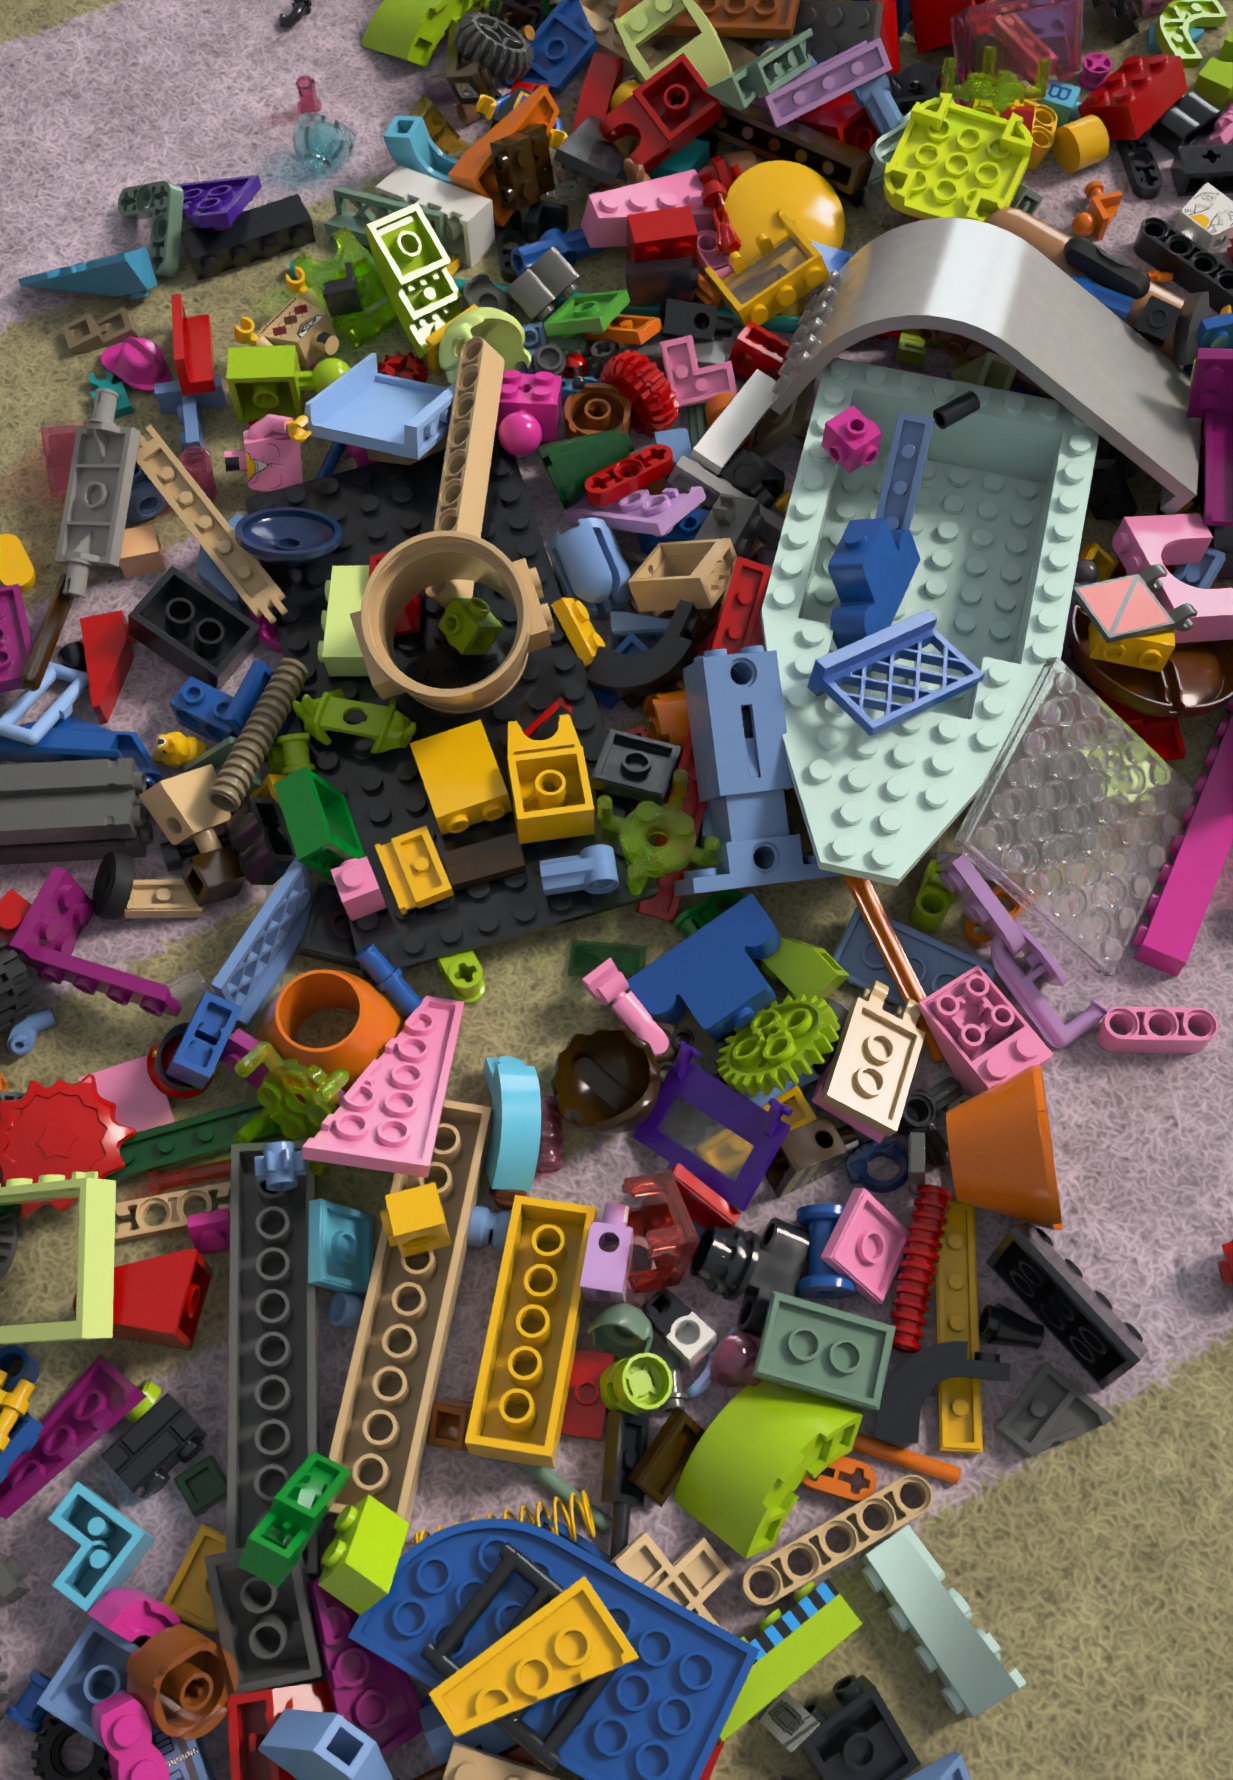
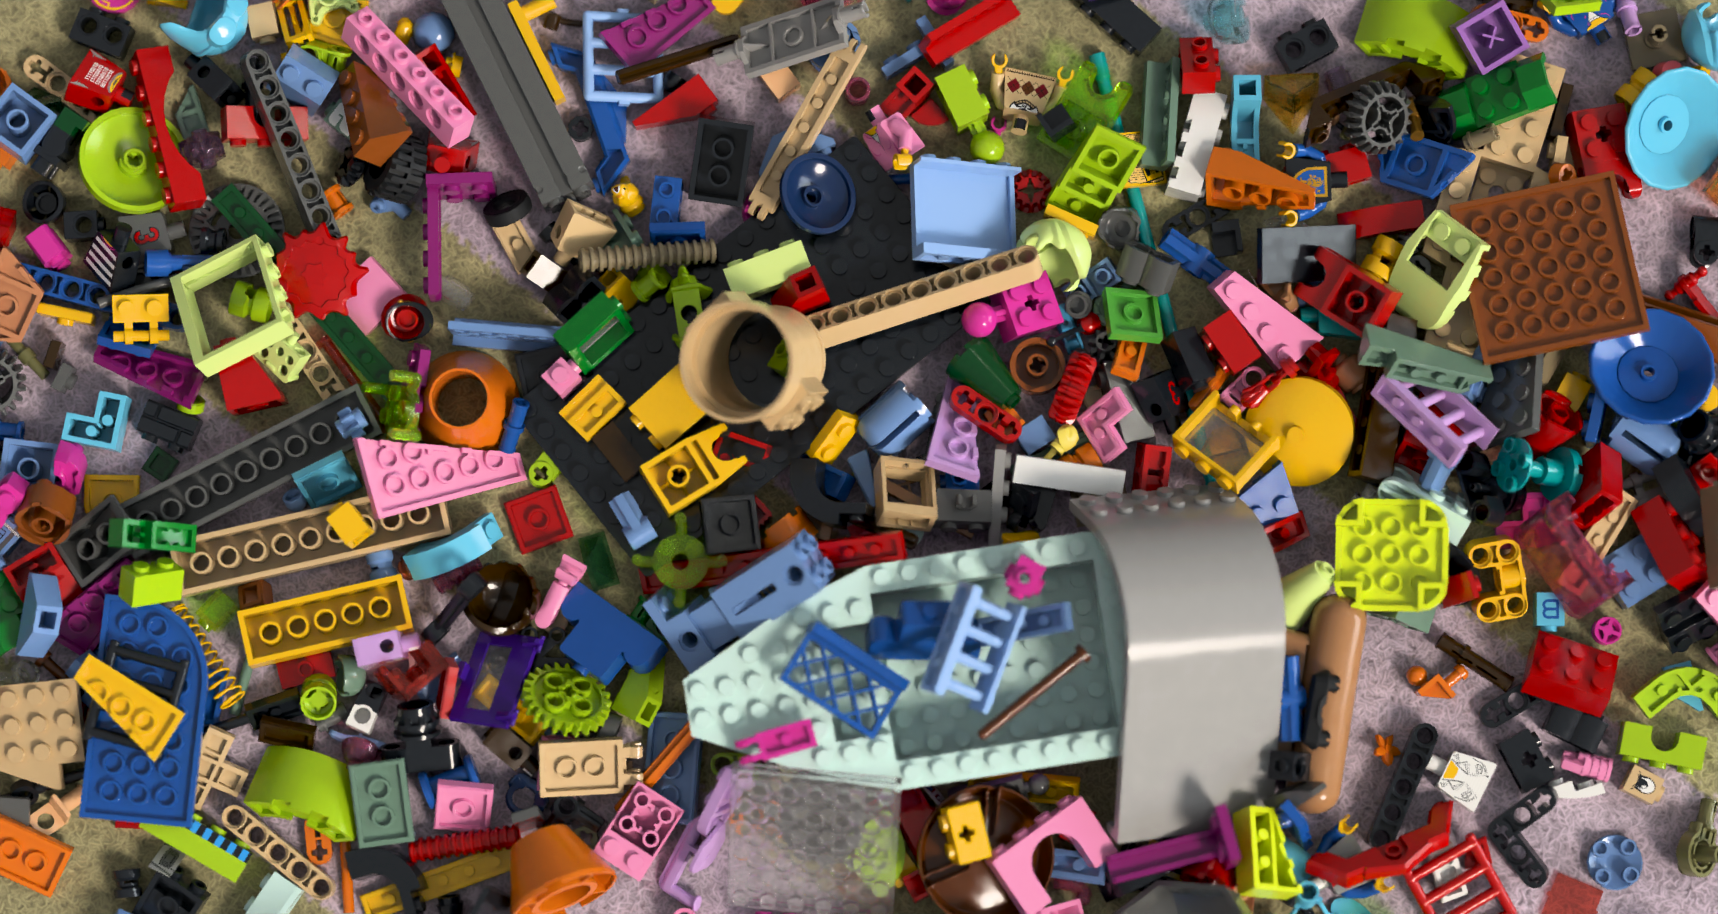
camera: 70 degrees right, 20 degrees up
(48, 1255) = (250, 301): none -> lime wheel
(153, 1240) = (285, 358): none -> yellowish green piece
(204, 1040) = (416, 331): blue brick -> none
(210, 1230) = (307, 393): dark pink plate -> none
(226, 420) = (909, 94): none -> red brick
(358, 170) = (1198, 66): none -> red brick
(386, 96) = (1309, 51): none -> black brick
(450, 1486) = (217, 611): none -> clear neon green brick
(521, 1010) = (538, 519): none -> red tile
(522, 167) = (1246, 203): dark brown plate -> none
(583, 1103) = (466, 593): none -> black piece
(693, 419) = (1065, 440): none -> light yellow piece
(917, 37) = (1554, 472): none -> teal piece
(918, 511) = (951, 638): none -> light blue fence
(951, 769) = (780, 741): none -> dark pink hinge
(956, 409) = (1095, 642): black piece -> none
(965, 426) = (1035, 692): none -> reddish brown bar
(991, 91) = (1498, 551): clear neon green plate -> none
(1076, 181) = (1475, 662): none -> dark brown pin
(1081, 143) = (1503, 645): yellow piece -> none
(1129, 609) = (978, 820): flag -> none

